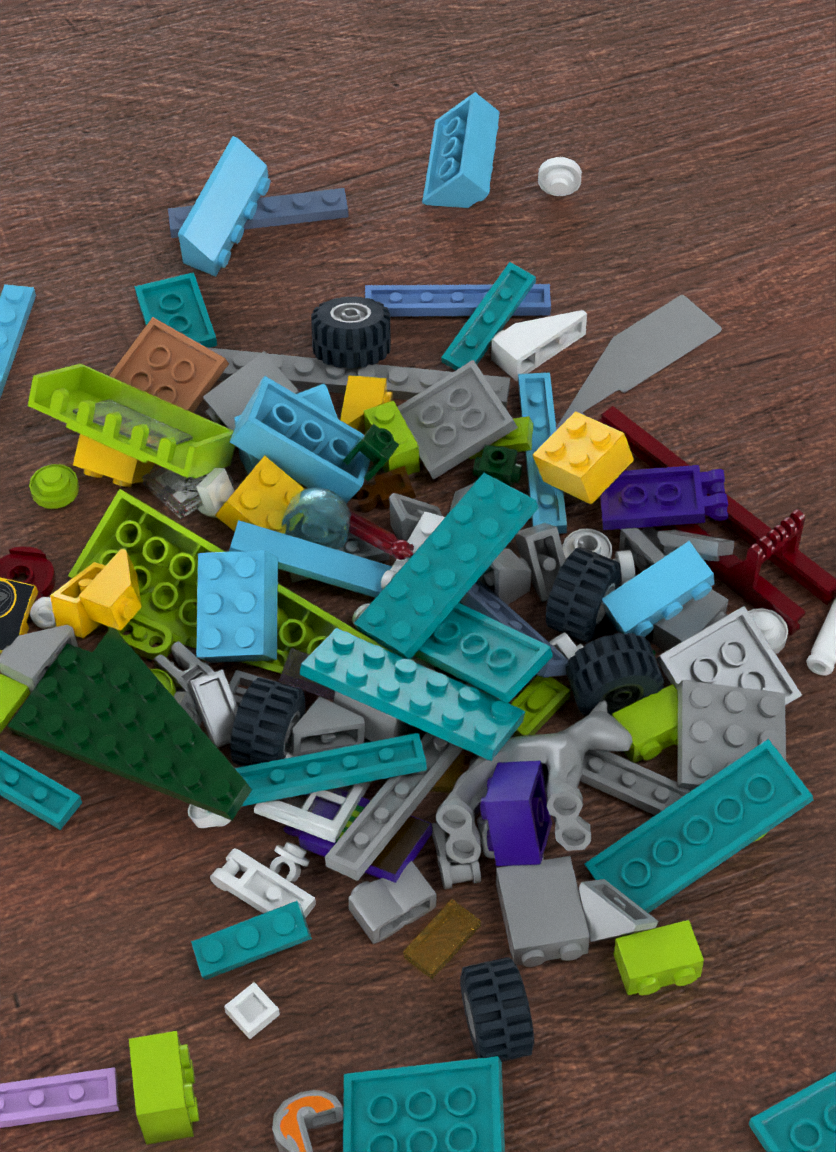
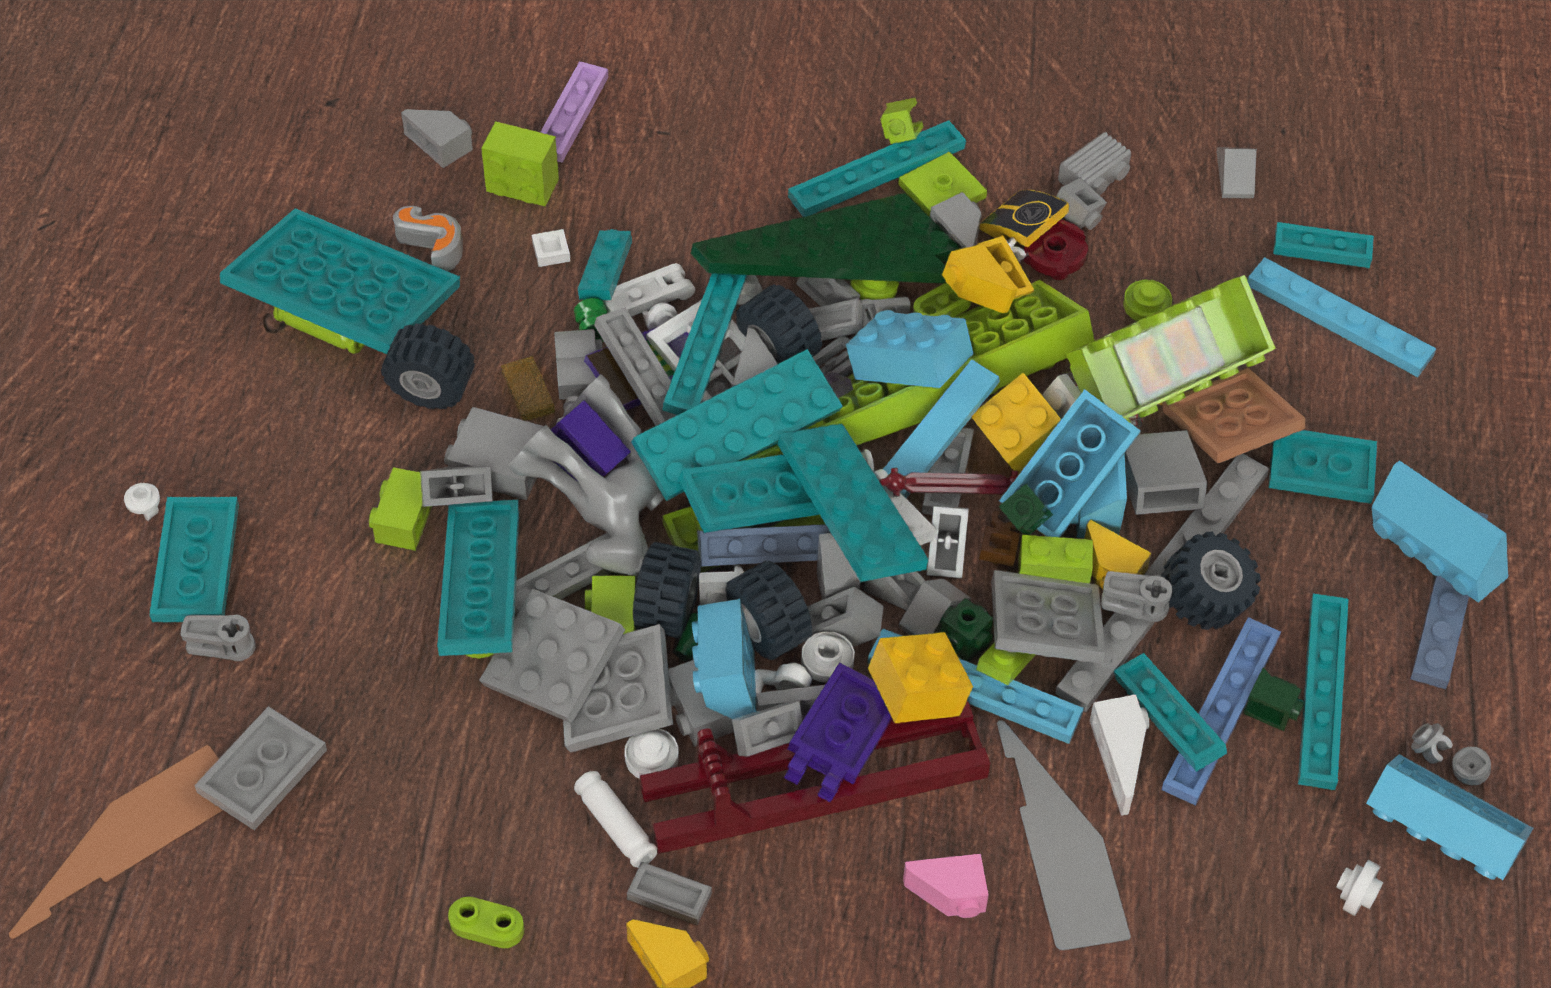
camera: 115 degrees right, 0 degrees up
(318, 517) = (973, 441): clear light blue cylinder -> none
(330, 915) = (586, 313): none -> green wheel
(398, 251) = (1323, 692): none -> teal plate
(398, 366) = (1135, 595): none -> light grey piece
(404, 183) = (1427, 738): none -> light grey plate
(409, 157) = (1471, 766): none -> light grey tile
(429, 267) = (1274, 701): none -> dark green window
(724, 395) = (949, 884): none -> bright pink slope

